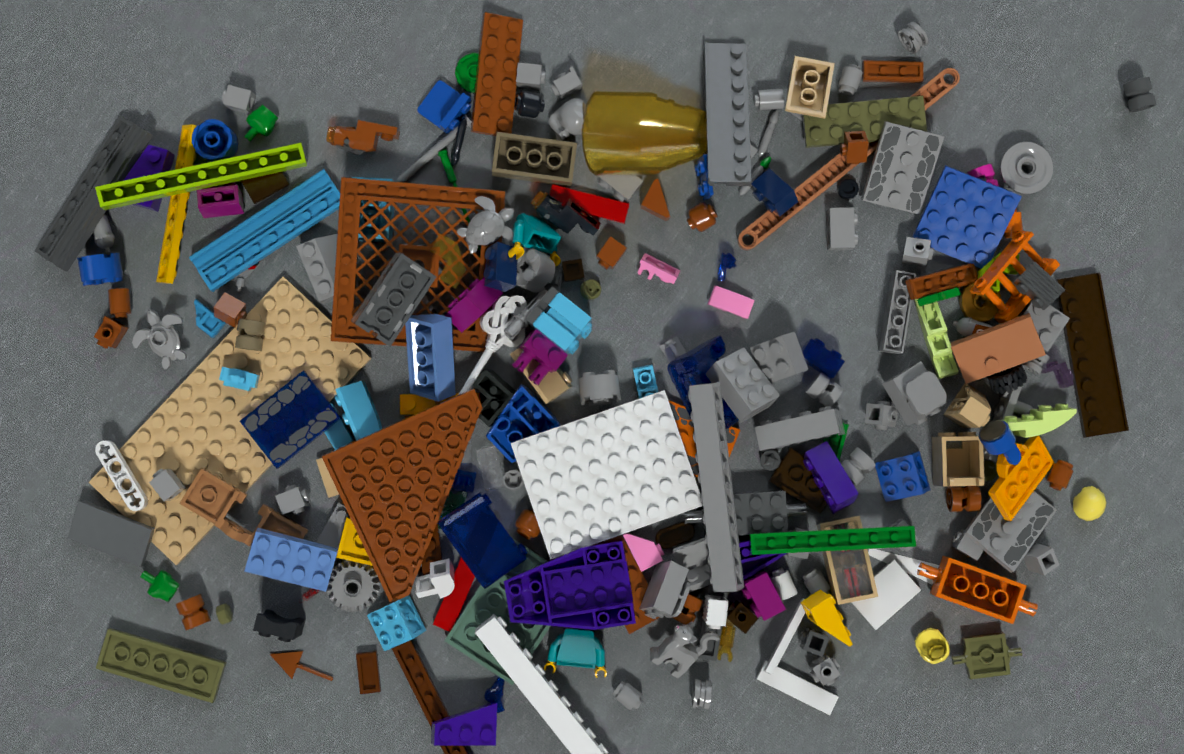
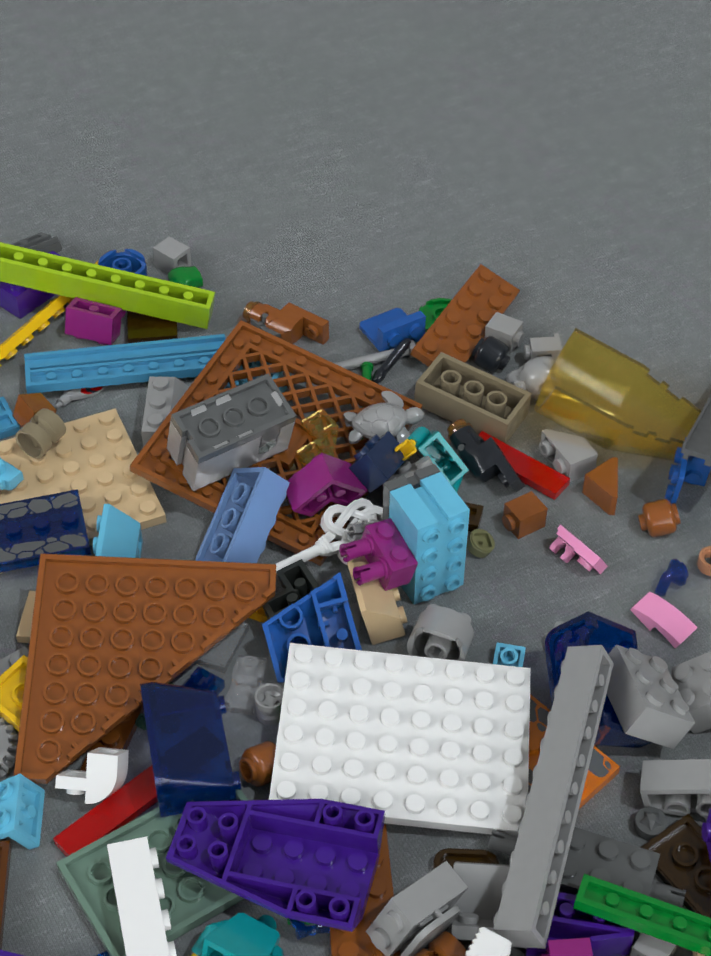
camera: 25 degrees right, 40 degrees down
(644, 551) = (408, 857): bright pink slope -> none

